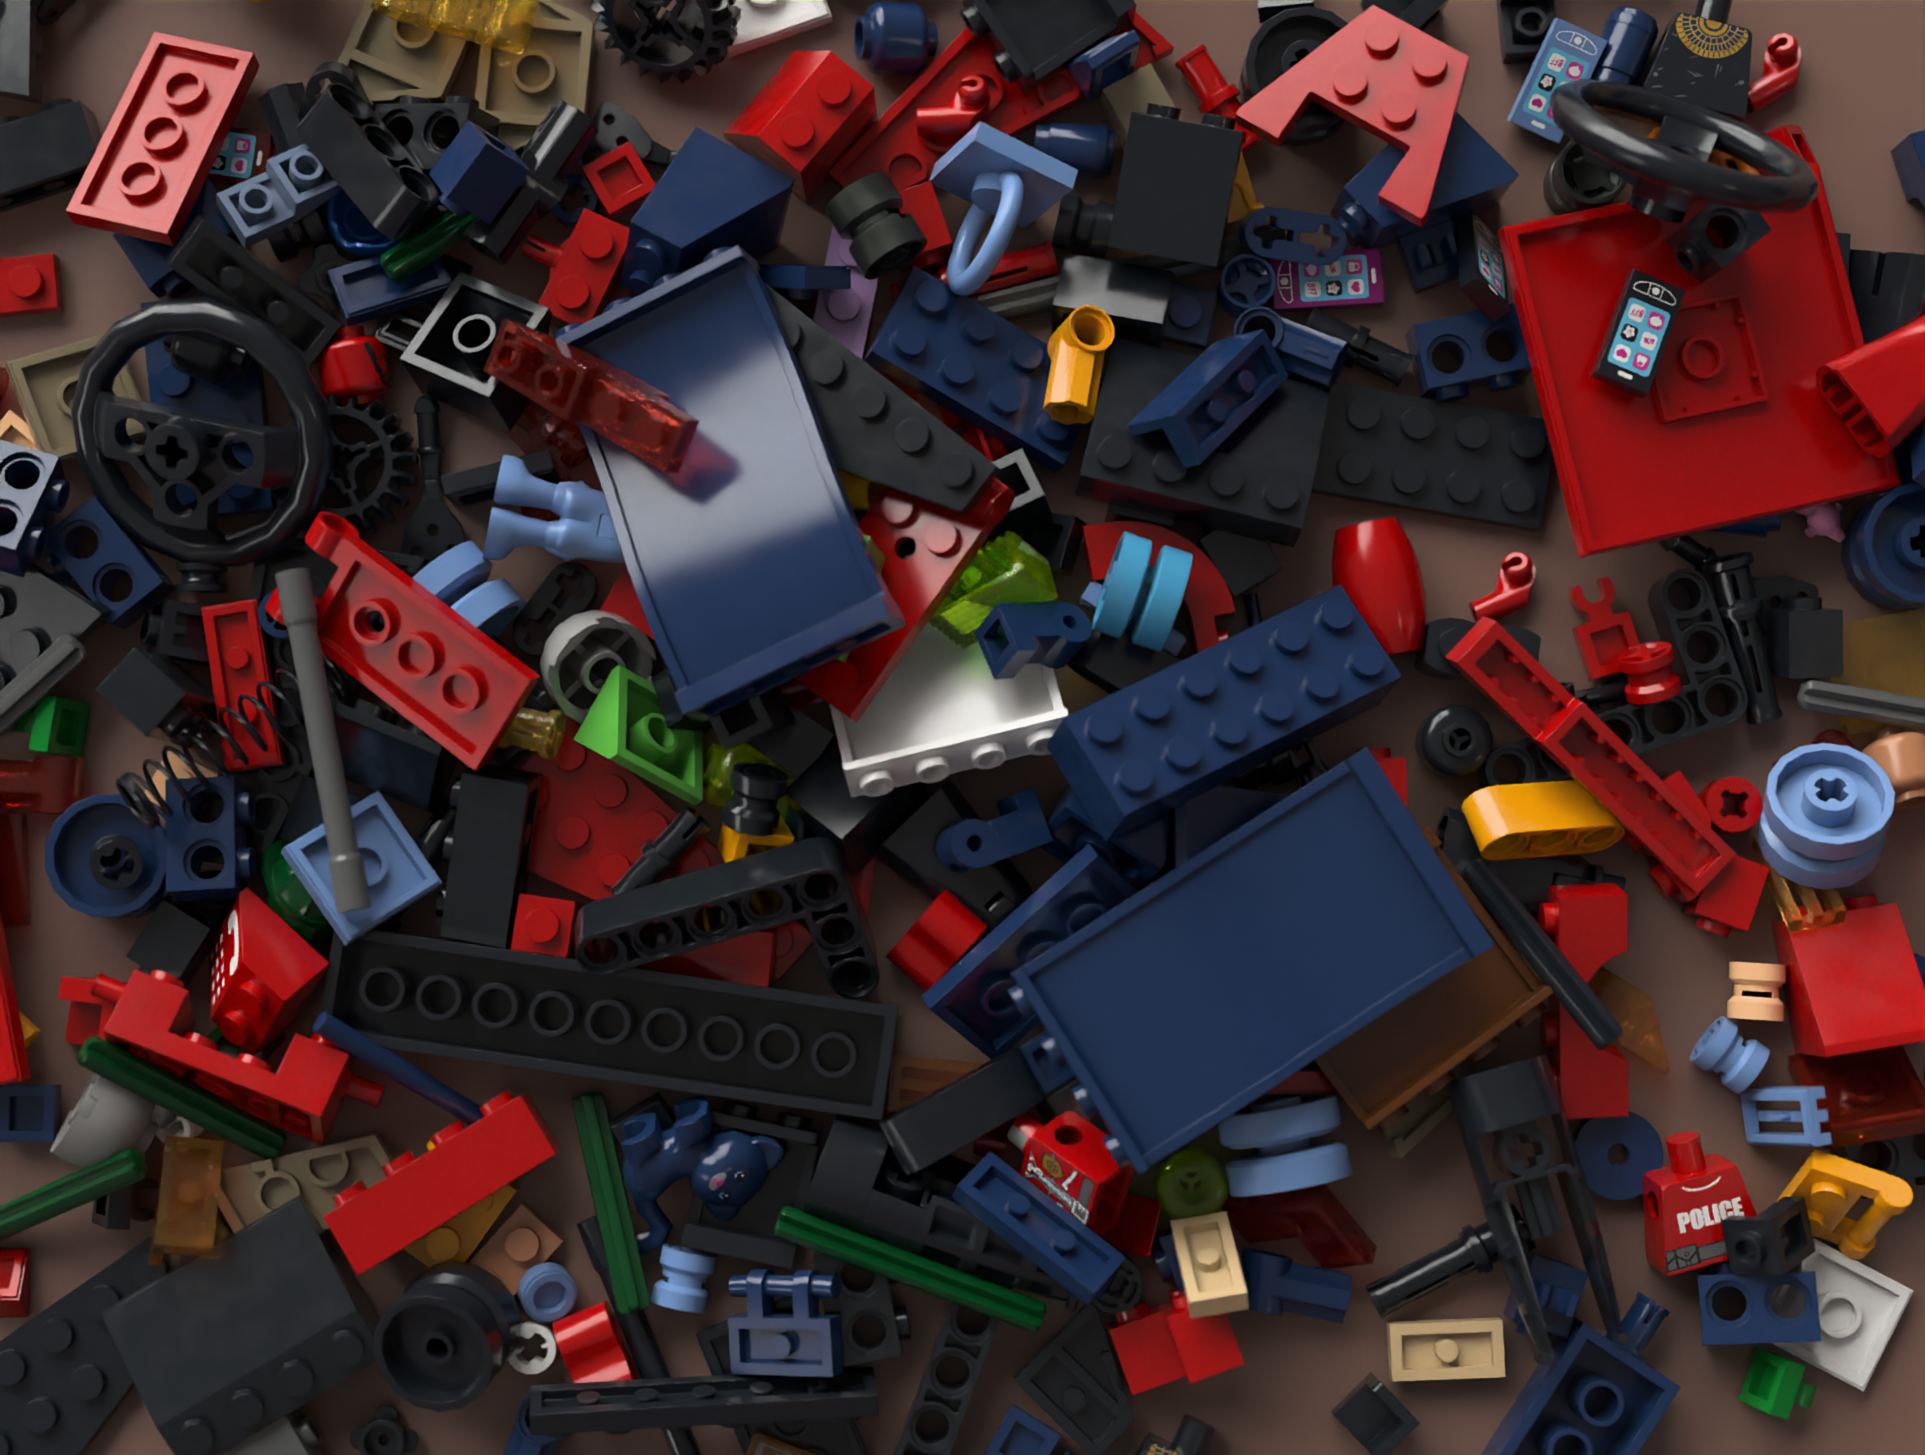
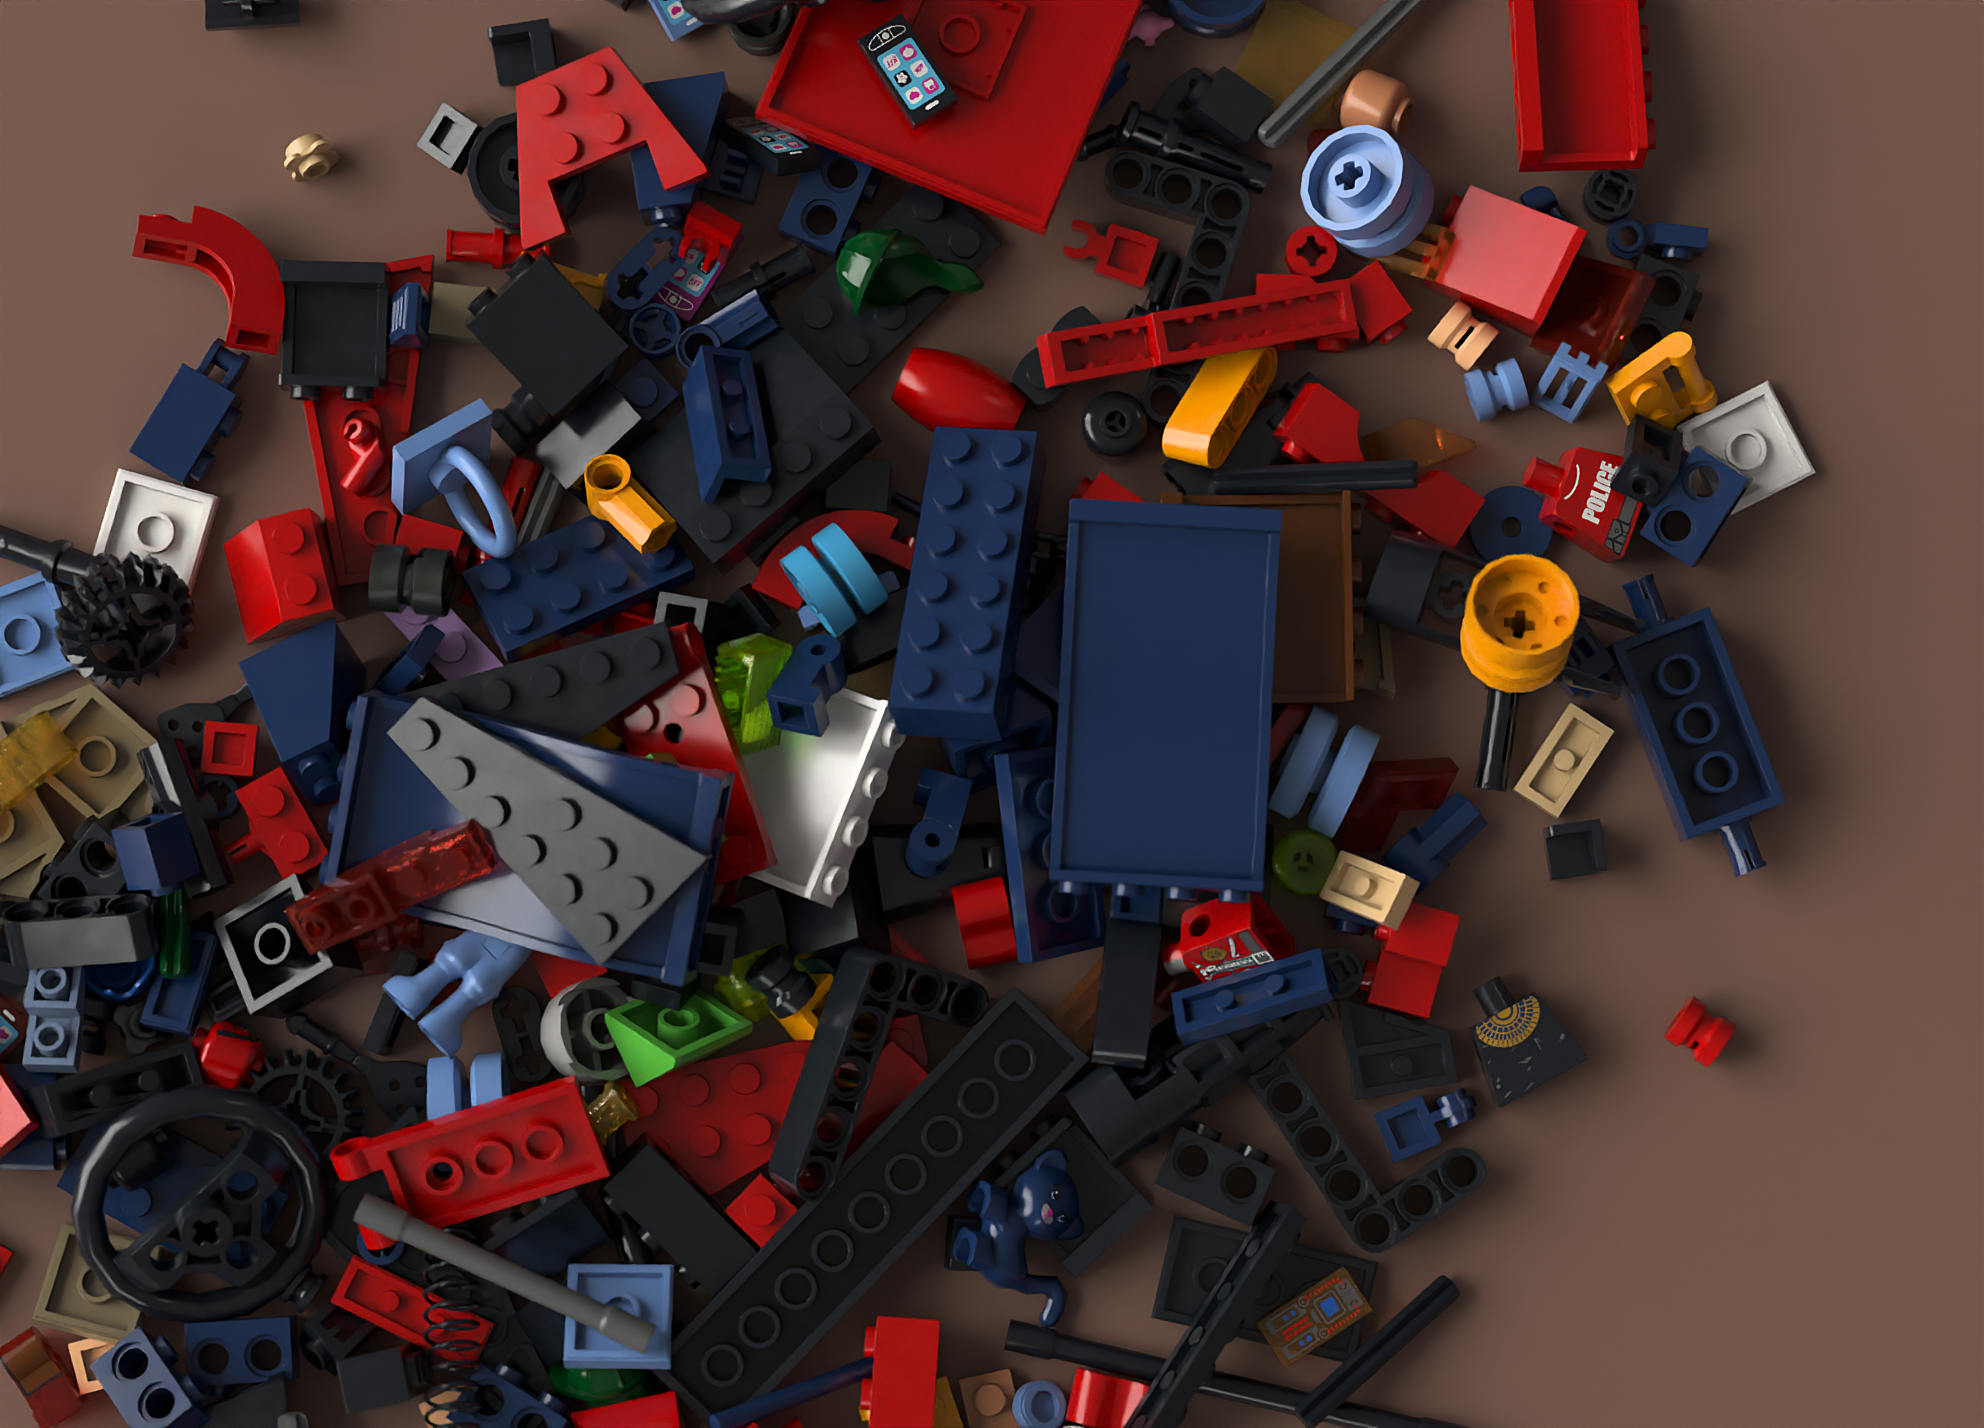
camera: 50 degrees left, 0 degrees up
(611, 1203) = (1006, 1309): dark green axle -> none
(666, 852) = (772, 1080): black pin -> none
(684, 1274) = (1102, 1295): medium blue wheel -> none
(739, 514) = (564, 839): none -> wing
(785, 1343) = (1205, 1249): dark blue plate -> none
(894, 38) = (271, 461): dark blue head -> none
(910, 1269) = (1215, 1116): dark green axle -> none
(1079, 146) = (456, 383): dark blue piece -> none
(1135, 1225) = (1305, 925): red slope -> none
(1365, 270) = (710, 234): none -> red tile
(1452, 446) = (888, 268): none -> dark green piece
(1511, 591) = (1032, 298): red arm -> none
(1575, 1227) = (1525, 598): none -> light orange wheel
(1649, 672) = (1167, 243): red wheel -> none
(1775, 1384) = (1763, 534): green tile -> none

